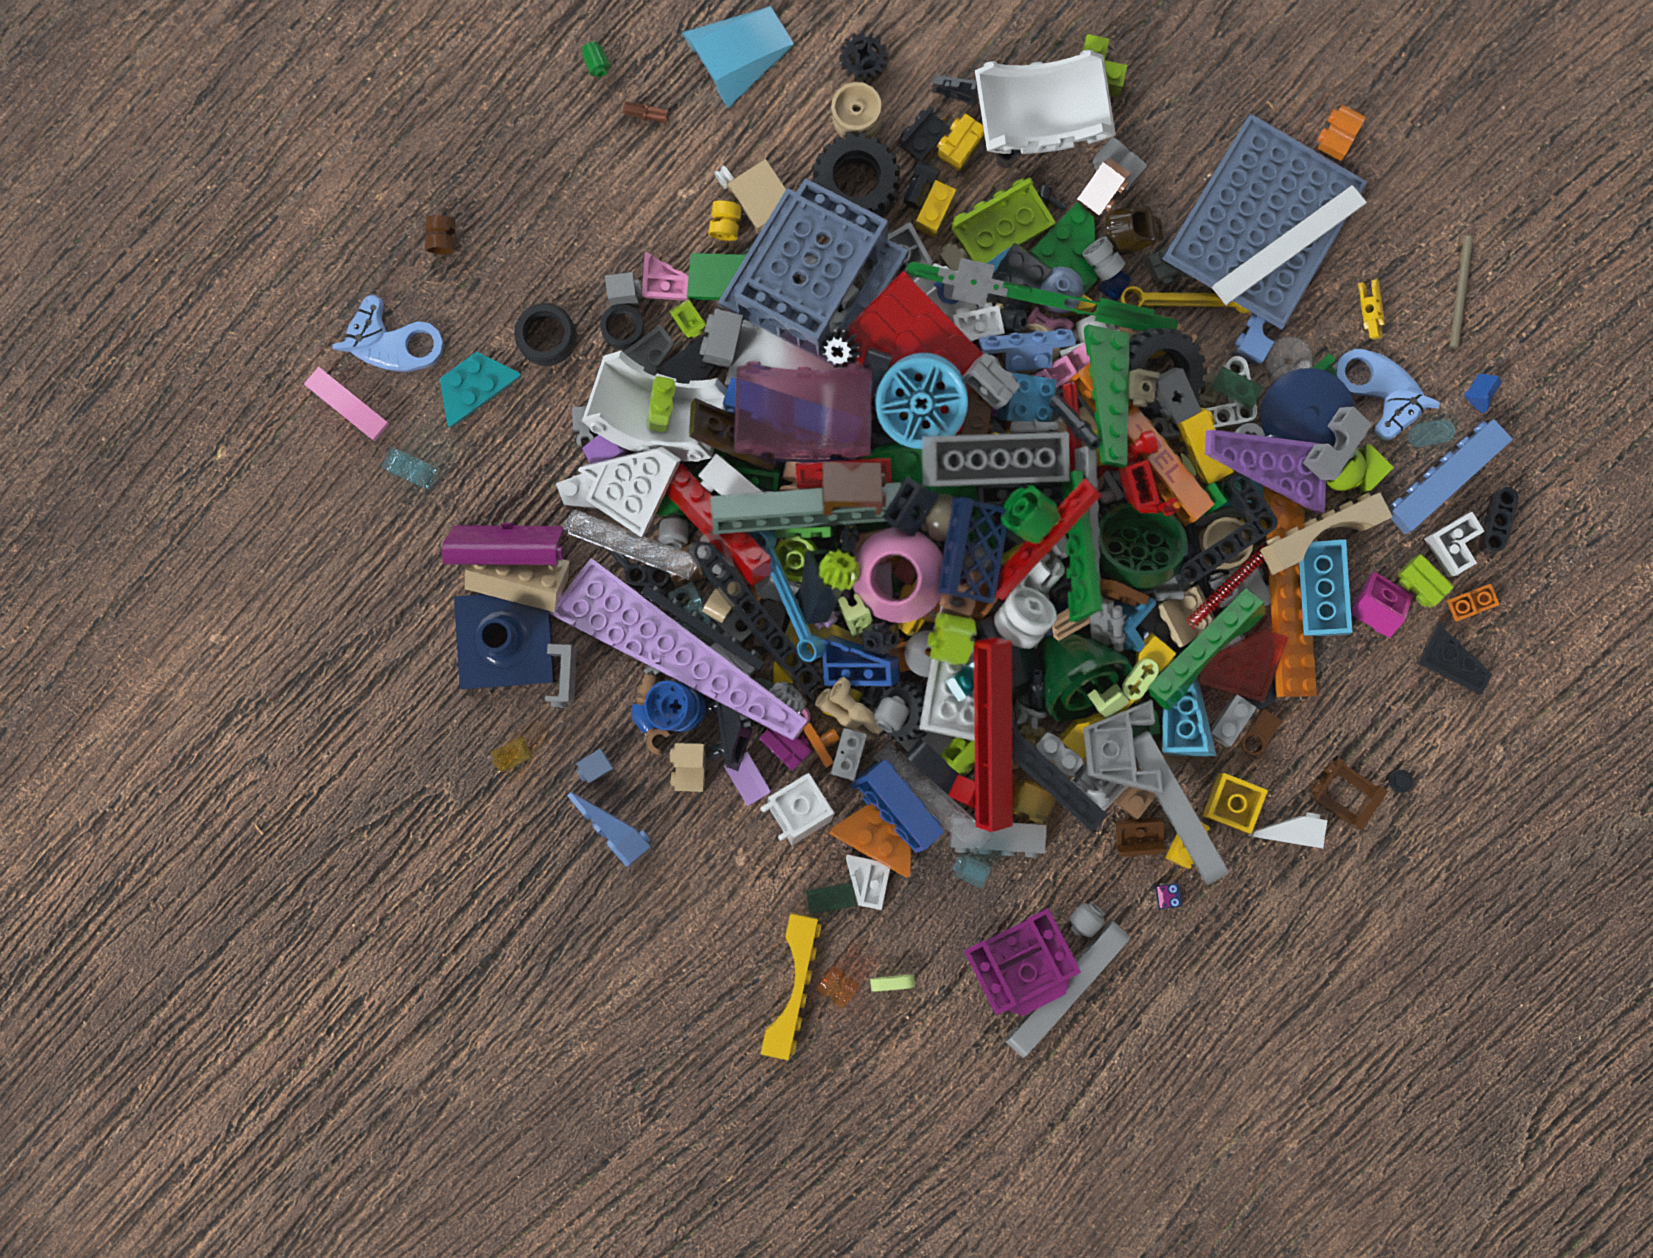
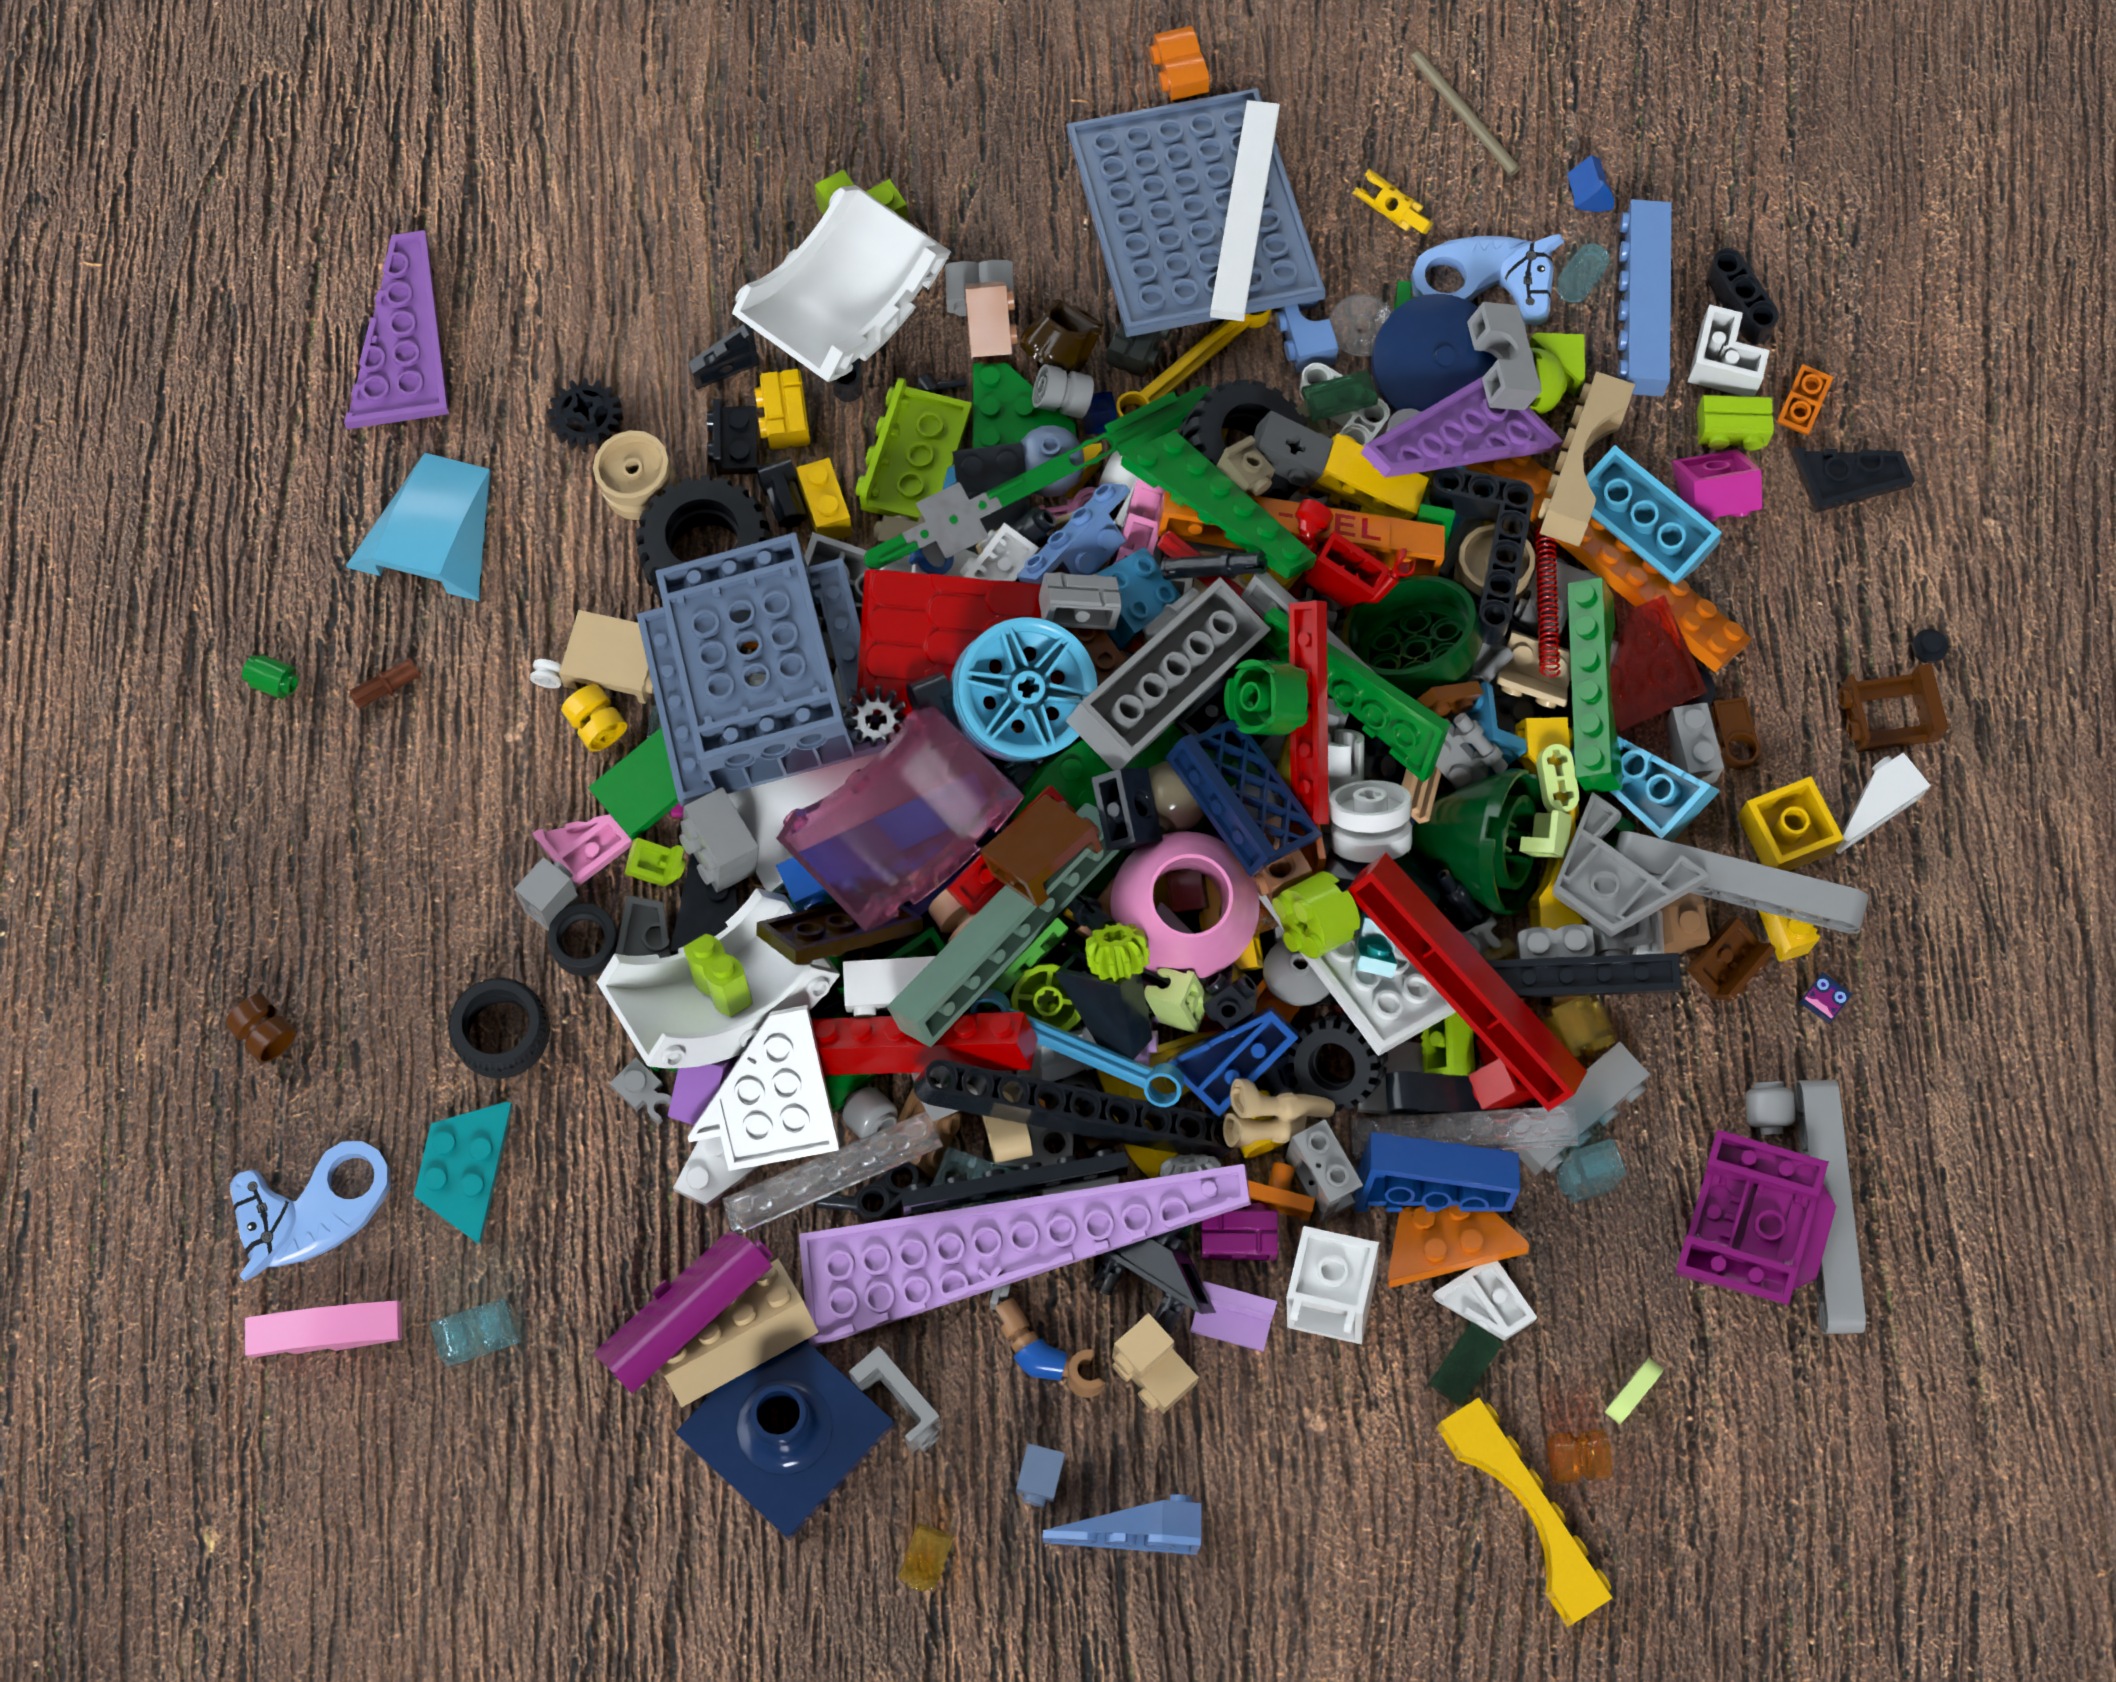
camera: 45 degrees left, 15 degrees down
(664, 704) = (1049, 1301): blue wheel -> none
(891, 714) = (1328, 1073): light grey head -> none

